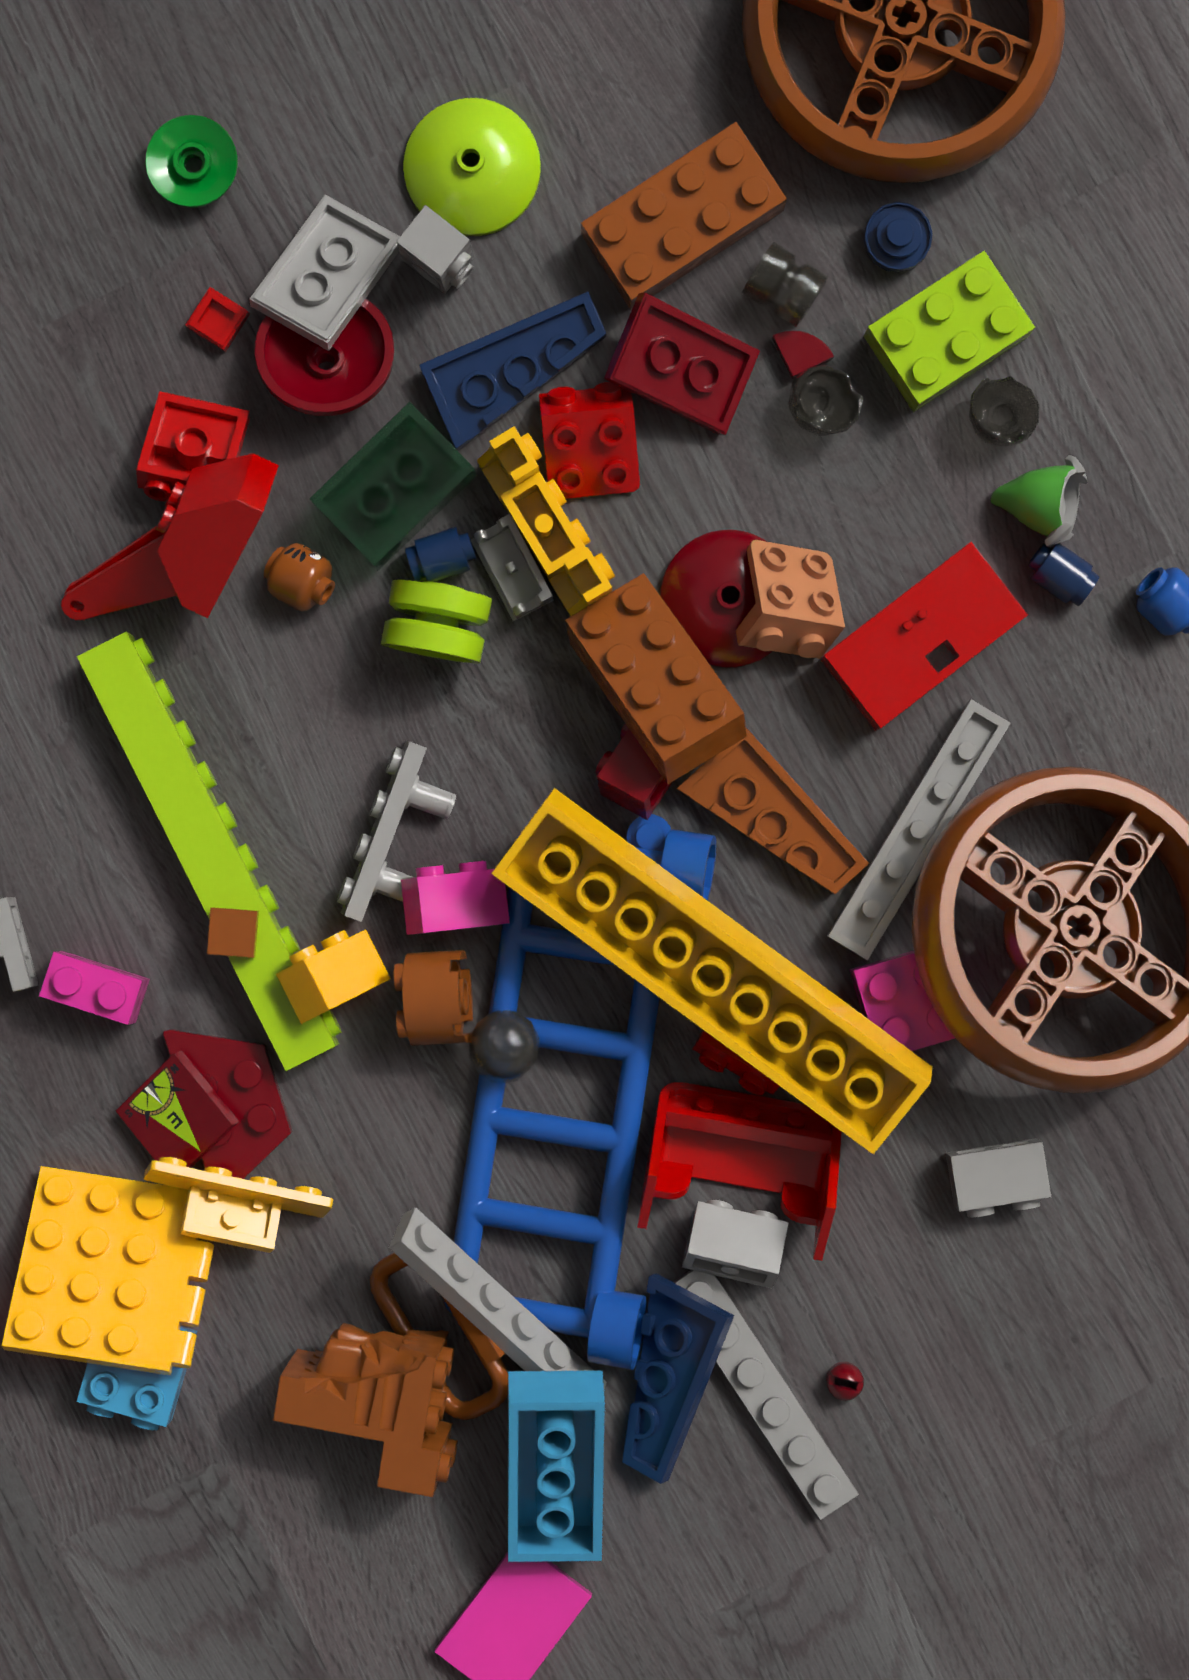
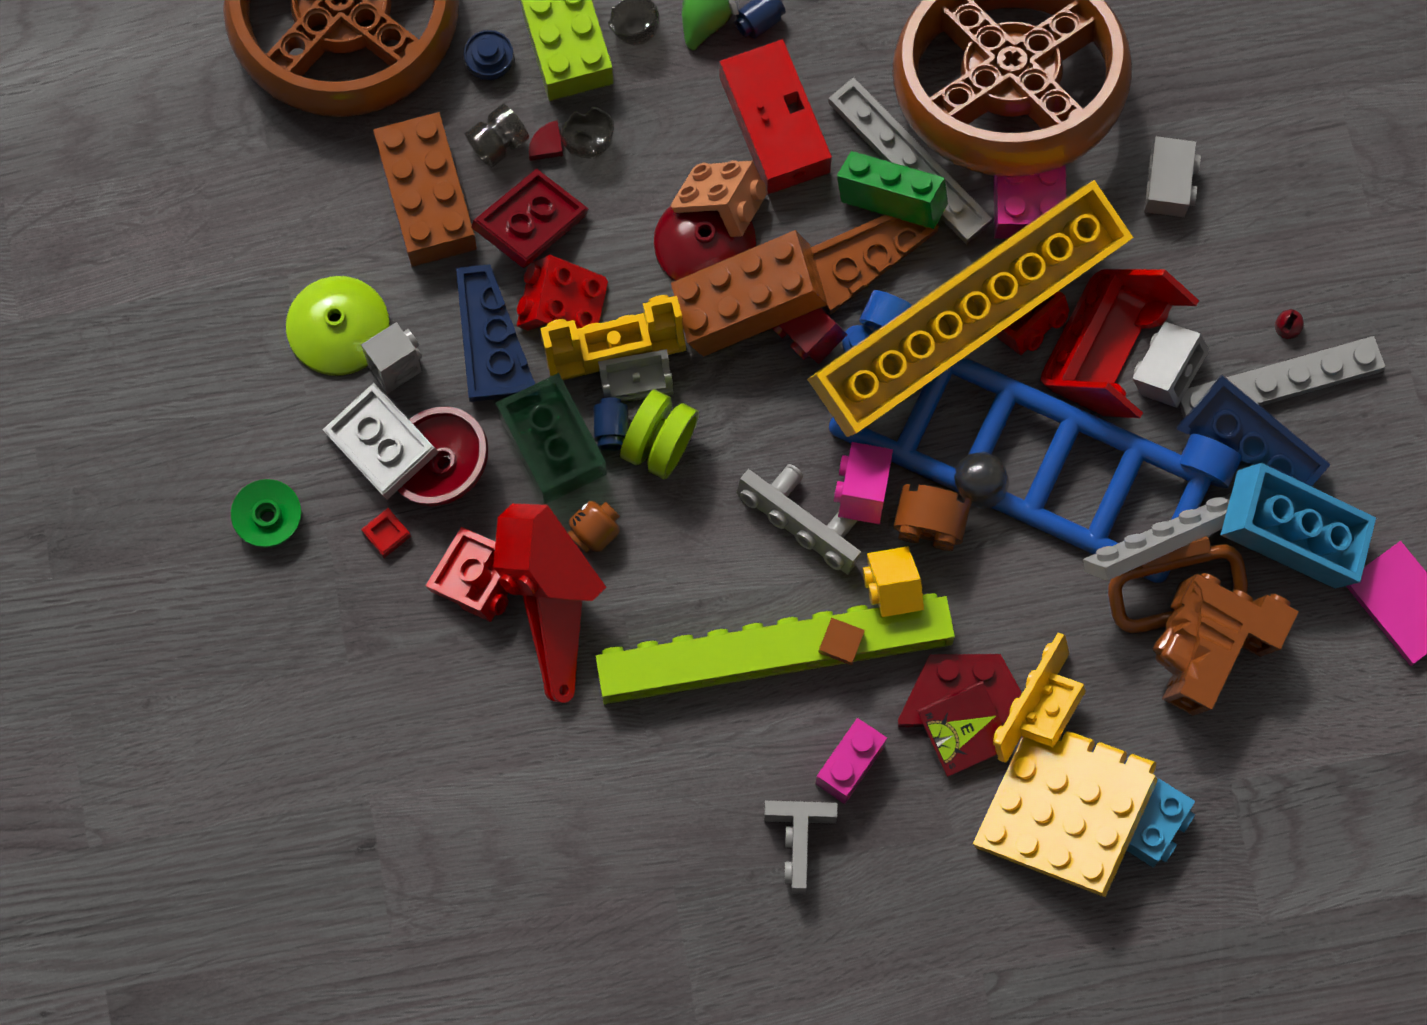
camera: 70 degrees left, 15 degrees down
(861, 820) = (892, 189): none -> green brick

